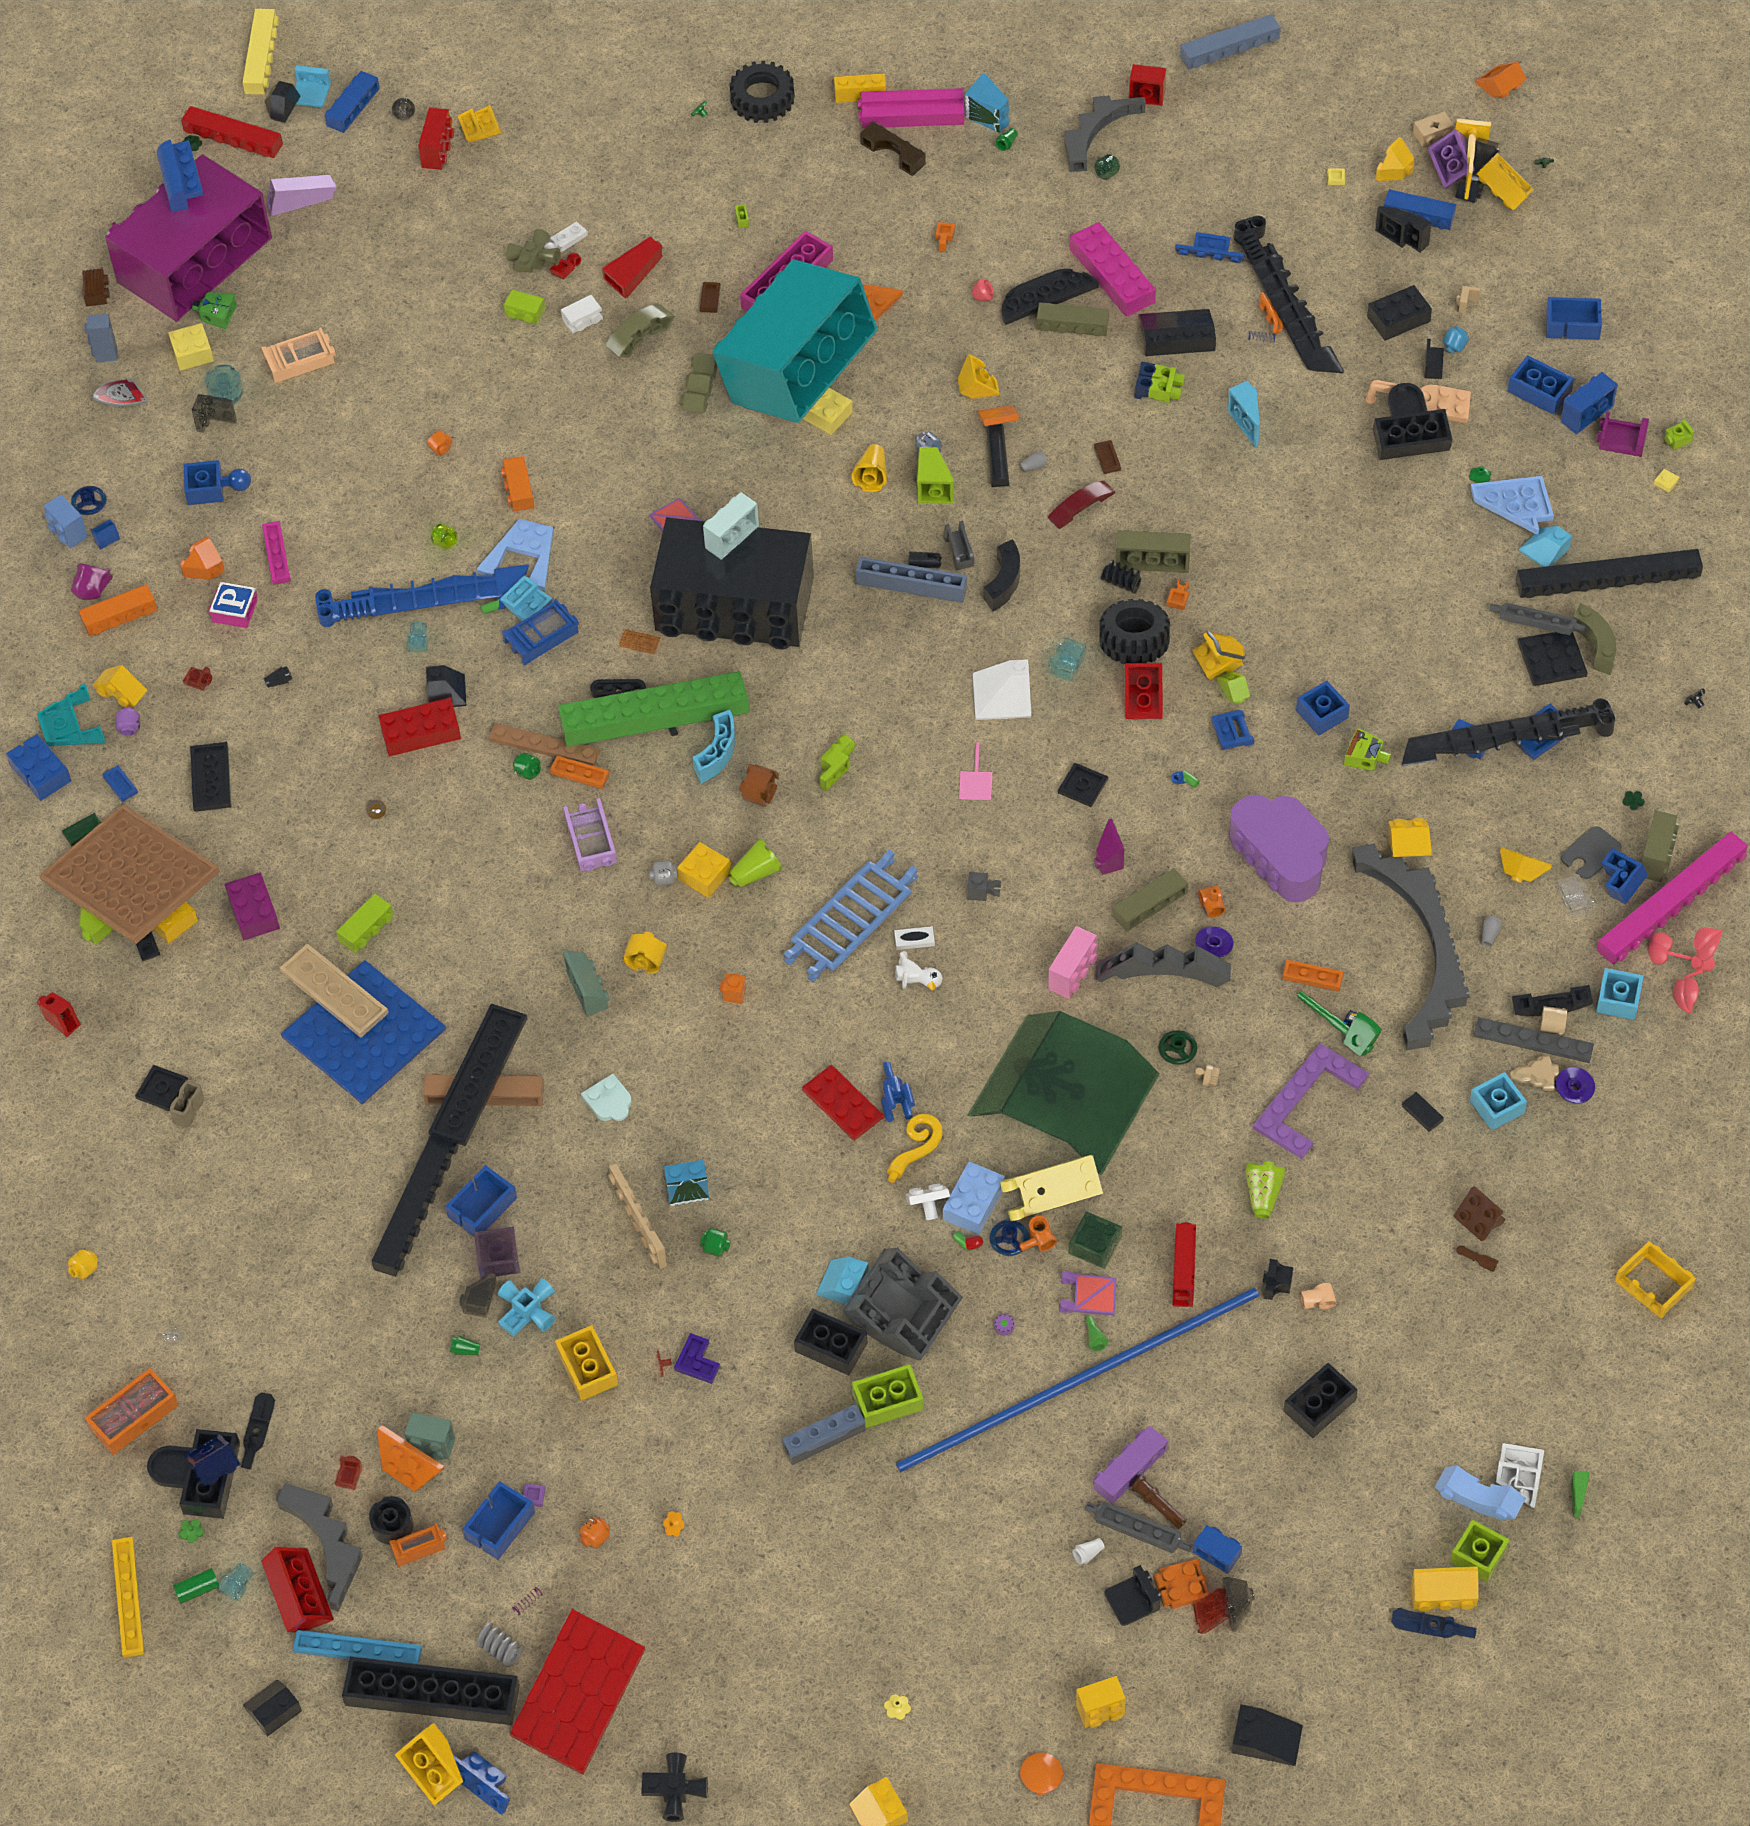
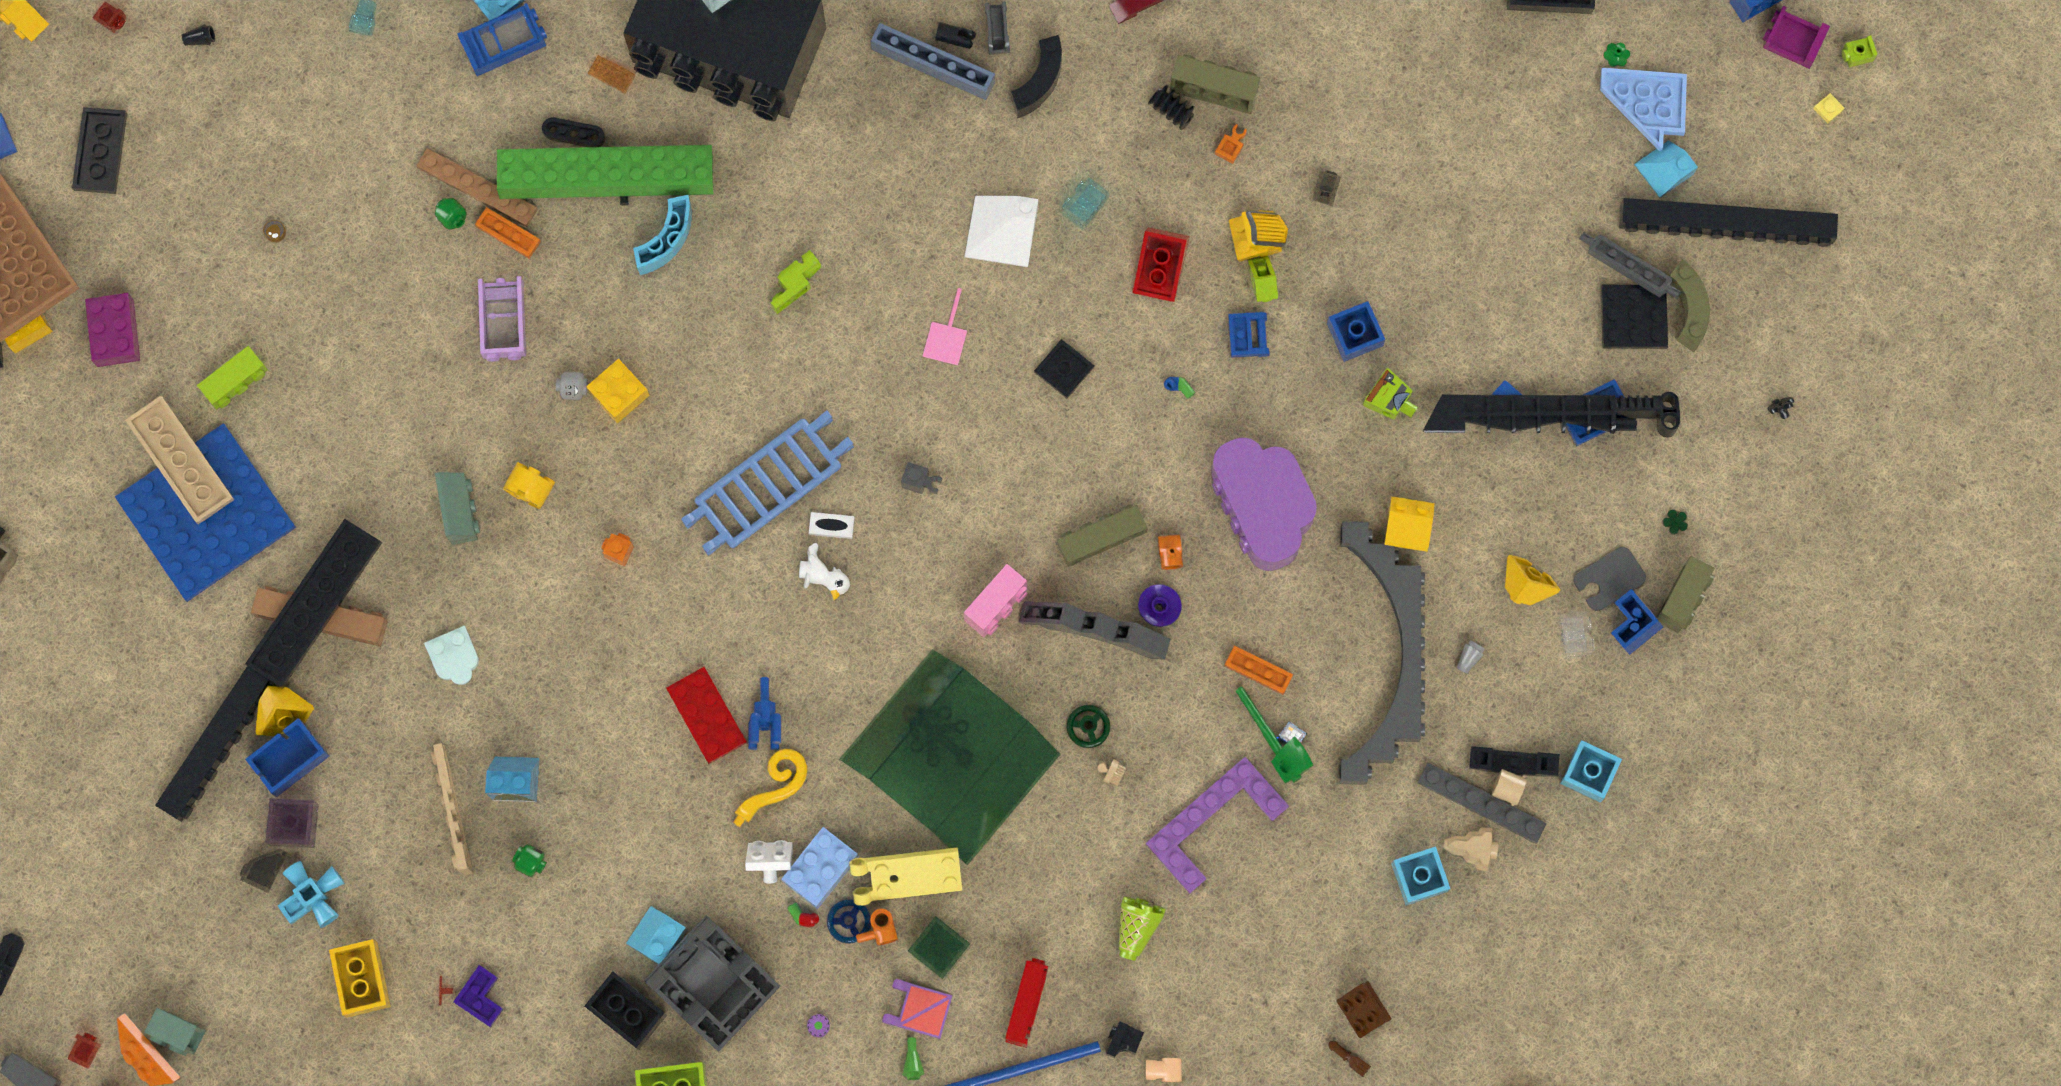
camera: 10 degrees right, 20 degrees up
(127, 721) = (20, 59): medium lavender head -> none
(419, 727) = (341, 137): red brick -> none
(446, 683) = (381, 90): black slope -> none
(464, 1164) = (279, 709): none -> yellow slope
(464, 1346) = (235, 926): green cone -> none
(755, 865) = (675, 398): lime cone -> none
(759, 785) = (701, 297): dark orange brick -> none
(1109, 850) = (1070, 466): magenta slope -> none
(1134, 616) = (1167, 212): black tyre -> none
(1267, 611) = (1326, 187): none -> clear smoke slope
(1422, 1111) = (1336, 865): black tile -> none
(1578, 1078) = (1522, 873): dark purple dish -> none
(1672, 898) = (1684, 659): dark pink brick -> none
(1706, 942) = (1697, 747): coral plant -> none

